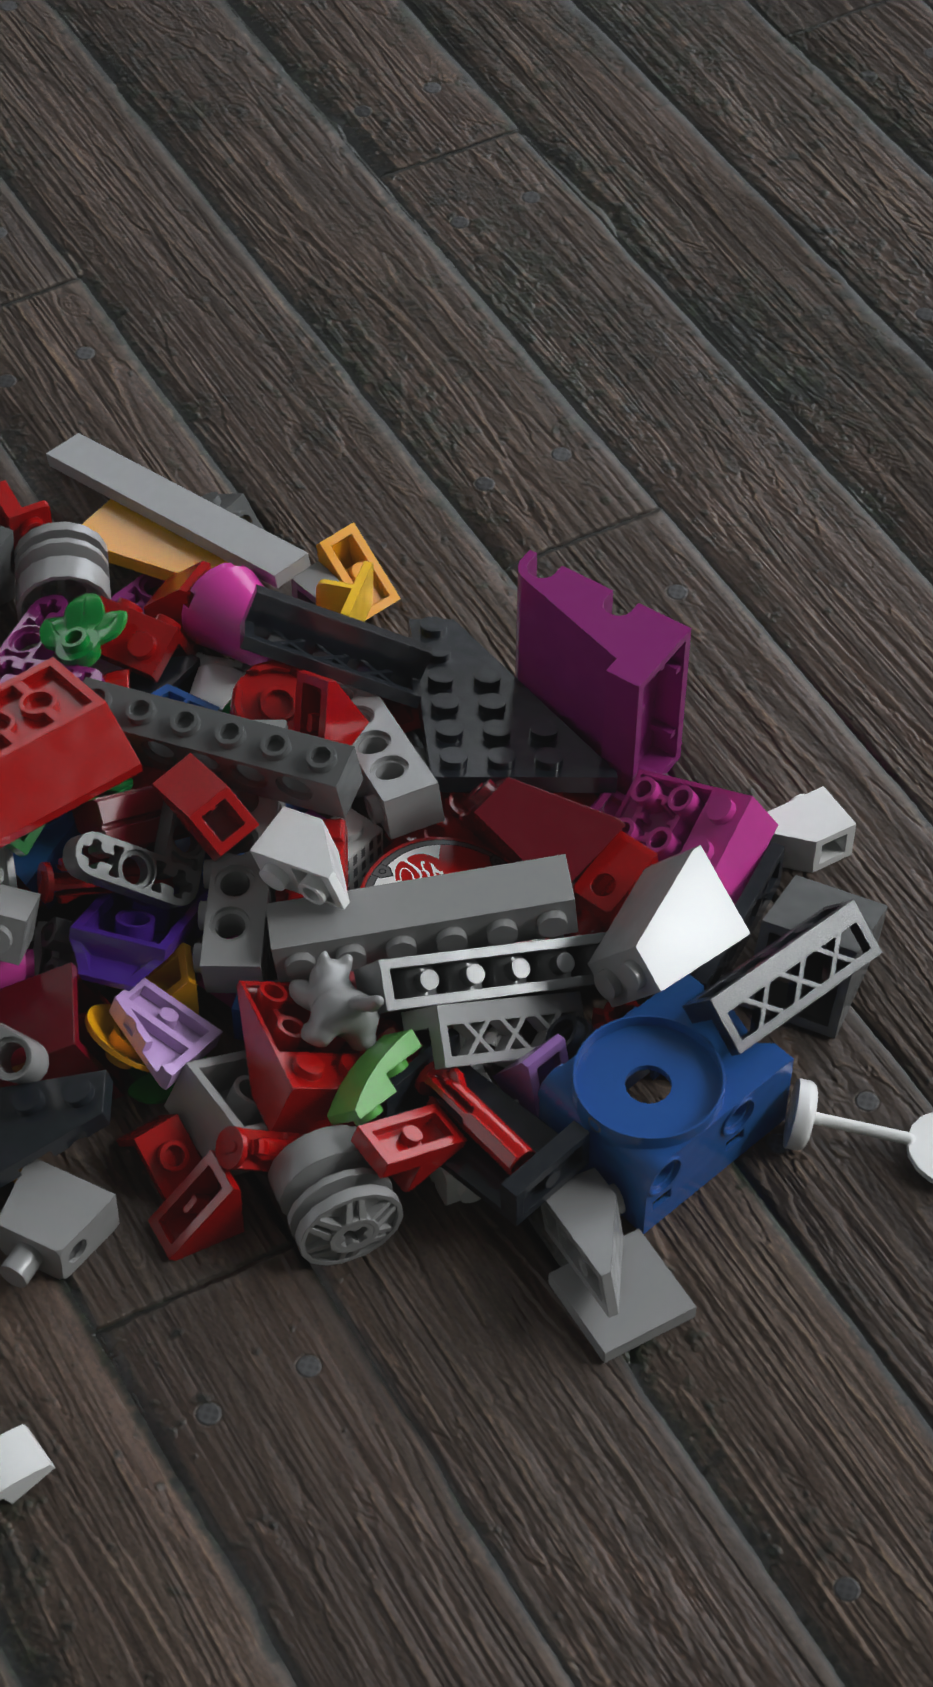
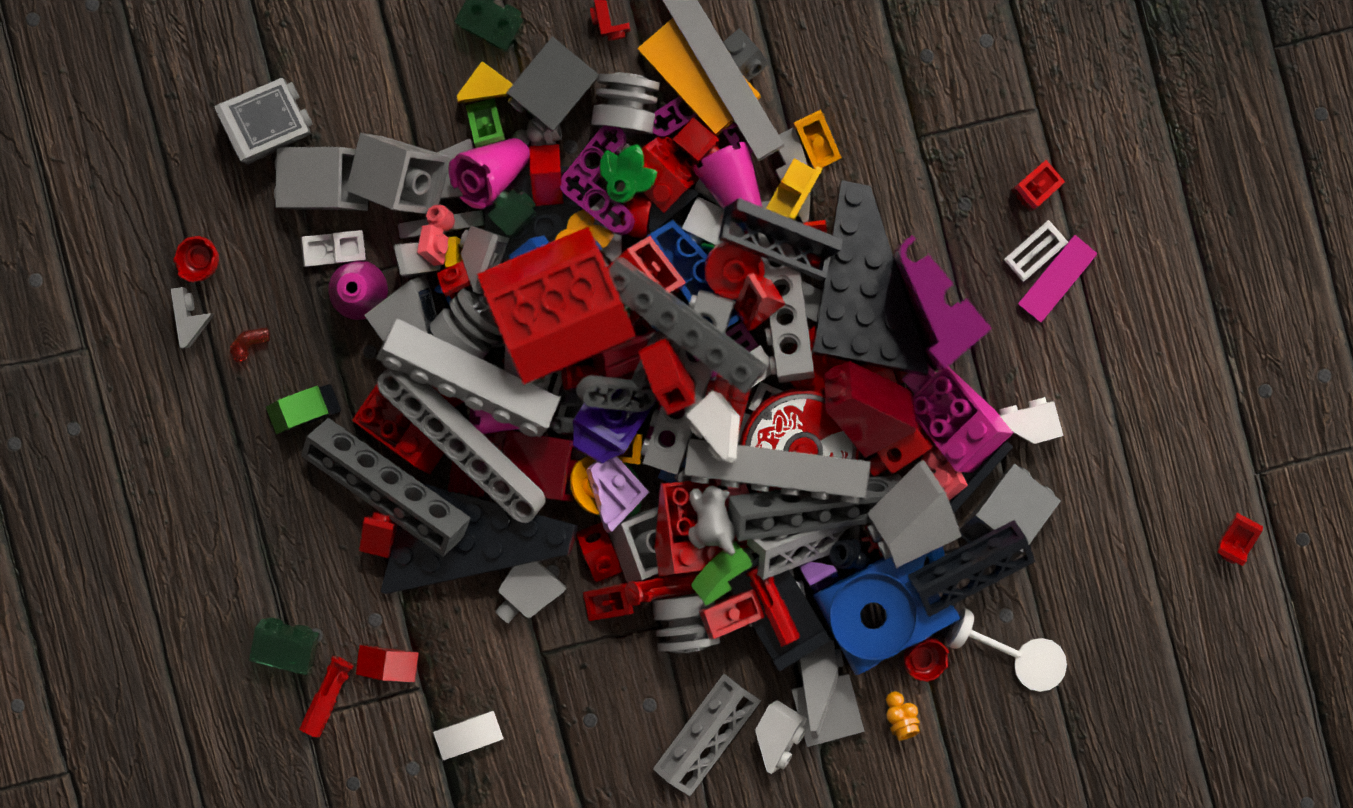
camera: 15 degrees right, 40 degrees up
(407, 1372) = (702, 732): none -> light grey fence
(549, 1332) = (777, 733): none -> white slope
(689, 577) = (1038, 186): none -> red slope
(734, 658) = (1054, 234): none -> white tile
(754, 1269) = (902, 716): none -> light orange piece
(760, 1168) = (926, 659): none -> red hair
(766, 671) = (1057, 278): none -> dark pink tile

